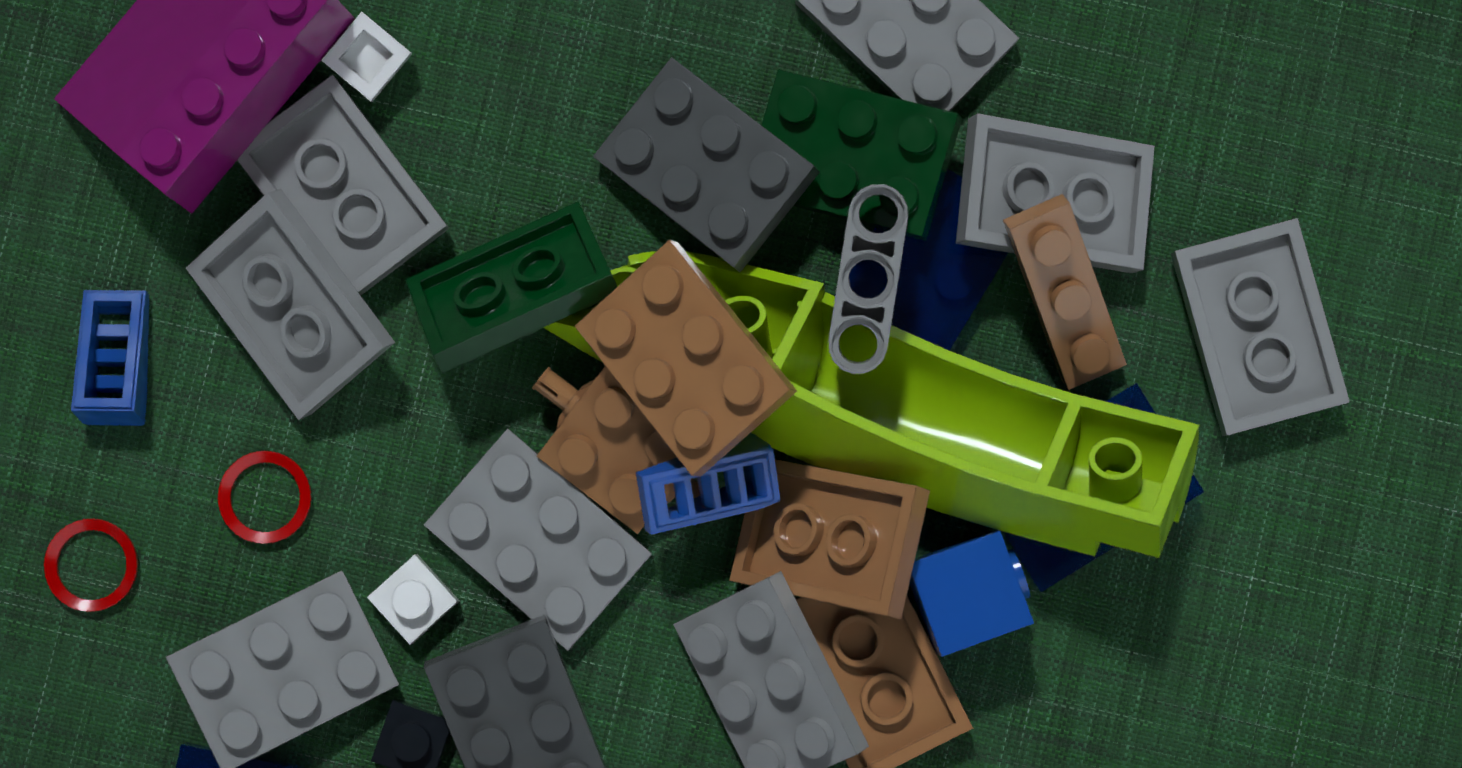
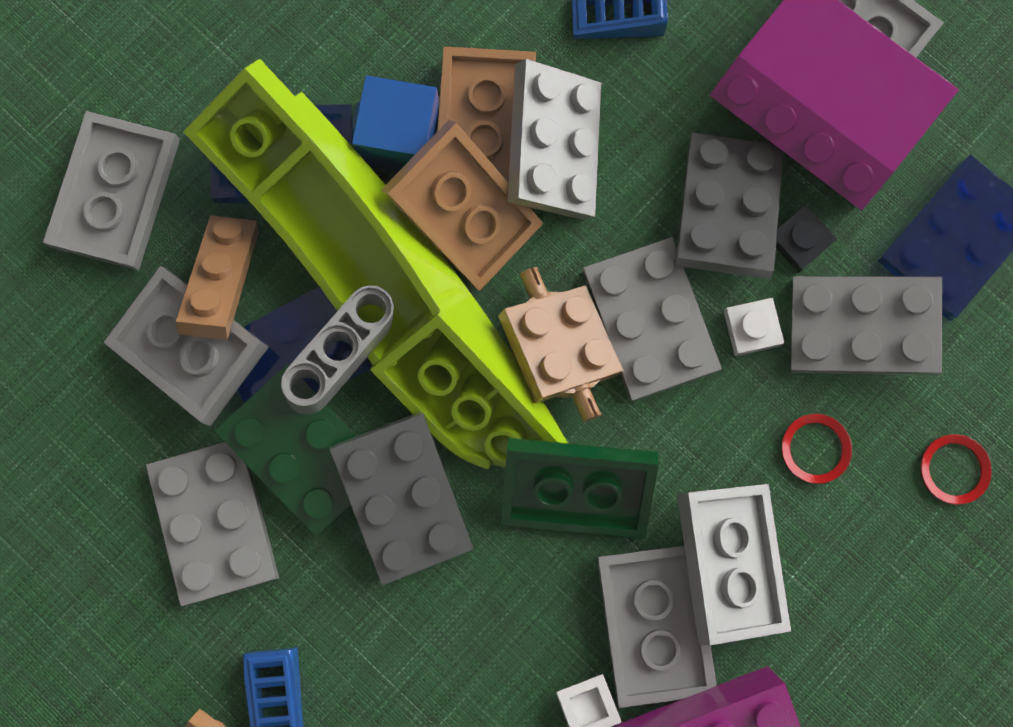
camera: 150 degrees left, 5 degrees down
(131, 408) = (886, 609): blue slope -> none
(685, 358) = (490, 364): medium nougat plate -> none
(749, 486) = (495, 267): blue slope -> none

